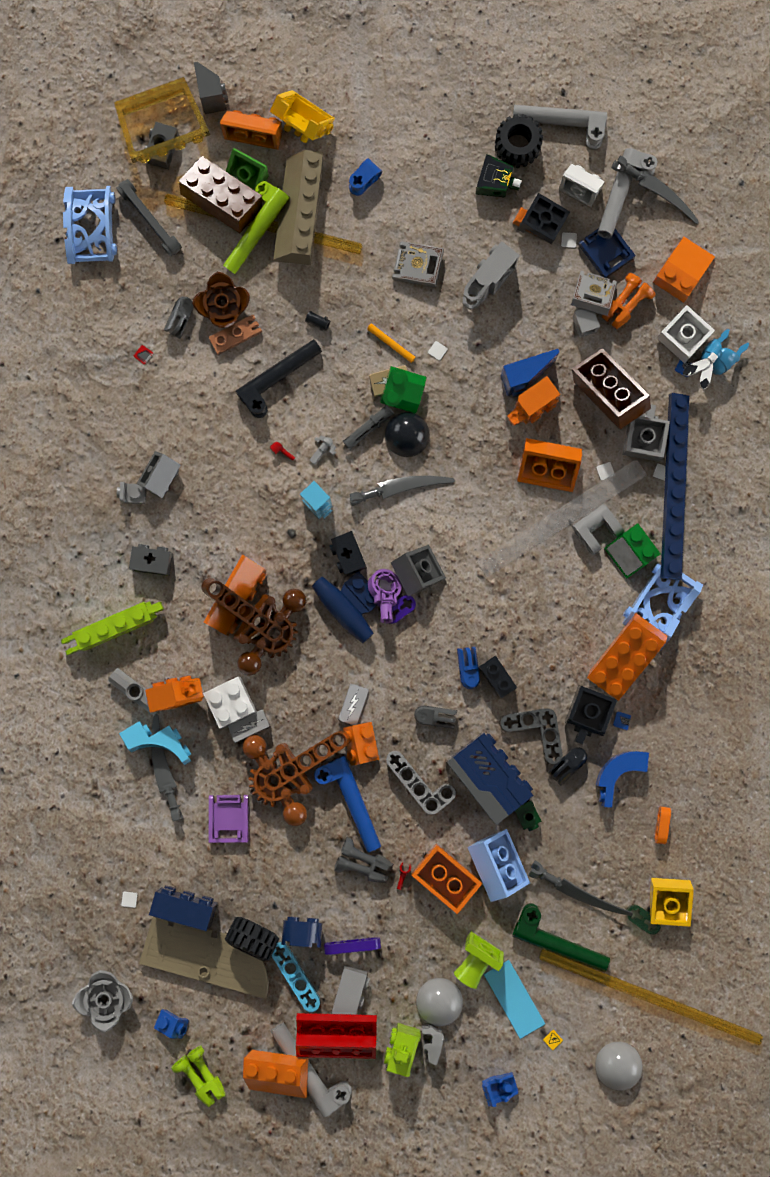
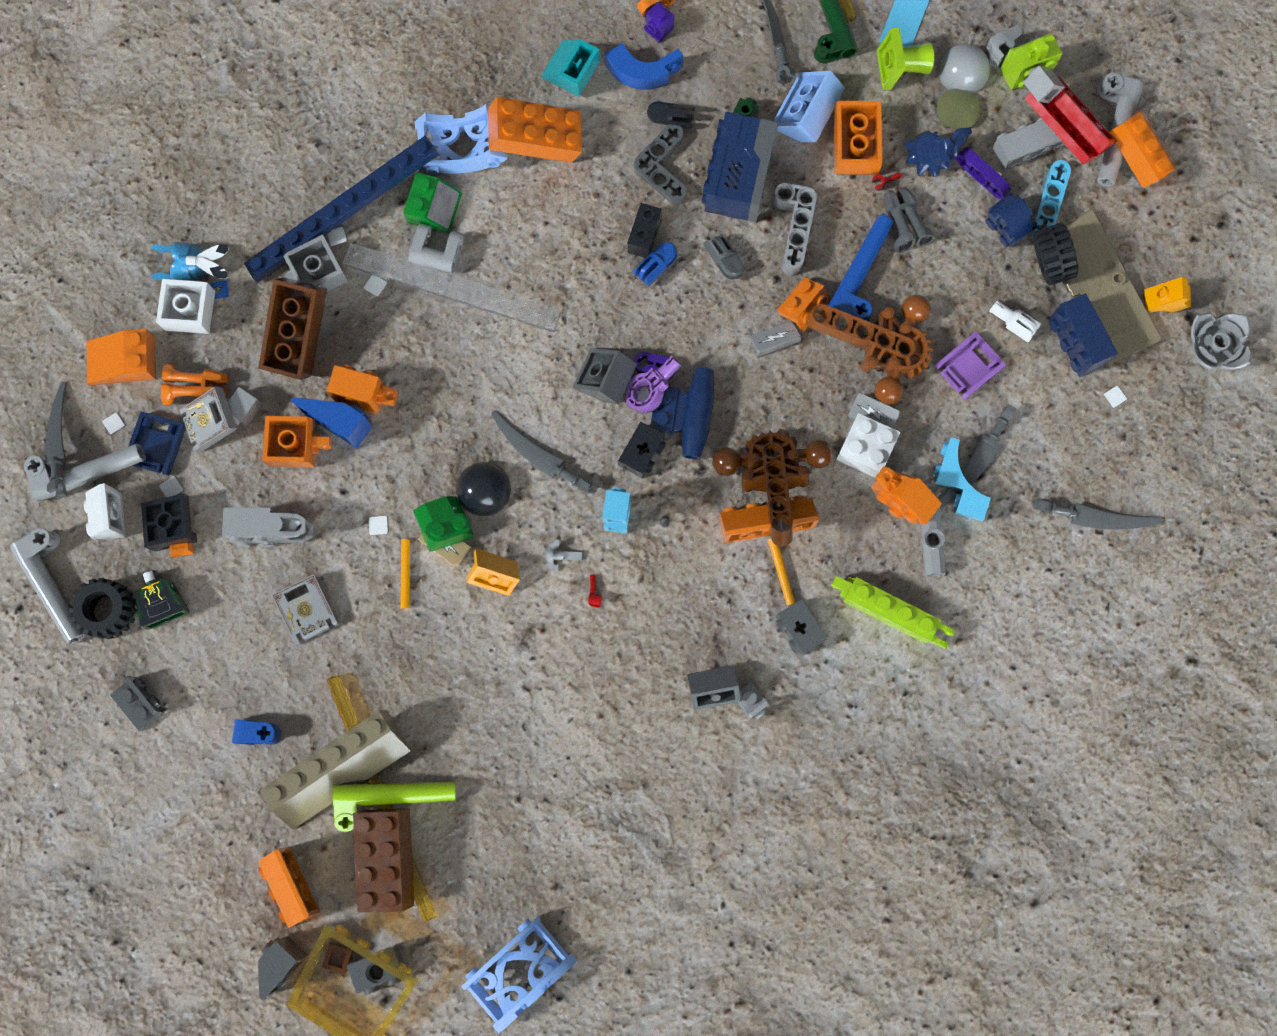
camera: 130 degrees left, 5 degrees down
(62, 812) = (1095, 518): none -> dark grey sword
(143, 354) = (607, 808): sticker -> none
(162, 994) = (1168, 296): none -> light orange brick
(169, 243) = (452, 964): dark grey piece -> none
(171, 1025) = (1187, 267): blue bracket -> none
(179, 316) = (541, 800): dark grey arm -> none
(186, 125) = (337, 958): none -> reddish brown plate
(189, 576) = (782, 574): none -> light orange bar
(202, 1088) = (1211, 201): lime piece -> none
(221, 288) = (479, 754): reddish brown brick -> none
(232, 875) = (1016, 321): none -> white arm
(235, 334) = (516, 732): nougat hinge -> none
(246, 169) = (337, 856): bright green slope -> none
(251, 391) = (560, 667): black axle -> none
(302, 116) = (237, 843): yellow piece -> none
(318, 321) = (438, 660): black pin -> none
(344, 396) = (493, 572): none -> light orange panel
(374, 422) = (505, 528): dark grey pin -> none
(375, 1036) = (1043, 84): none -> light grey brick
(394, 922) = (935, 152): none -> dark blue head
(412, 971) = (958, 109): none -> olive dish
(442, 121) = (137, 702): none -> dark grey bracket
(534, 333) = (292, 441): none -> orange hinge
(549, 465) = (409, 335): orange slope -> none
(590, 713) = (611, 128): black hinge -> none
(622, 720) = (593, 103): blue sticker -> none
(643, 234) = (113, 423): none -> white sticker
(644, 812) = (659, 22): none -> dark purple brick
(660, 724) = (572, 65): none -> teal slope

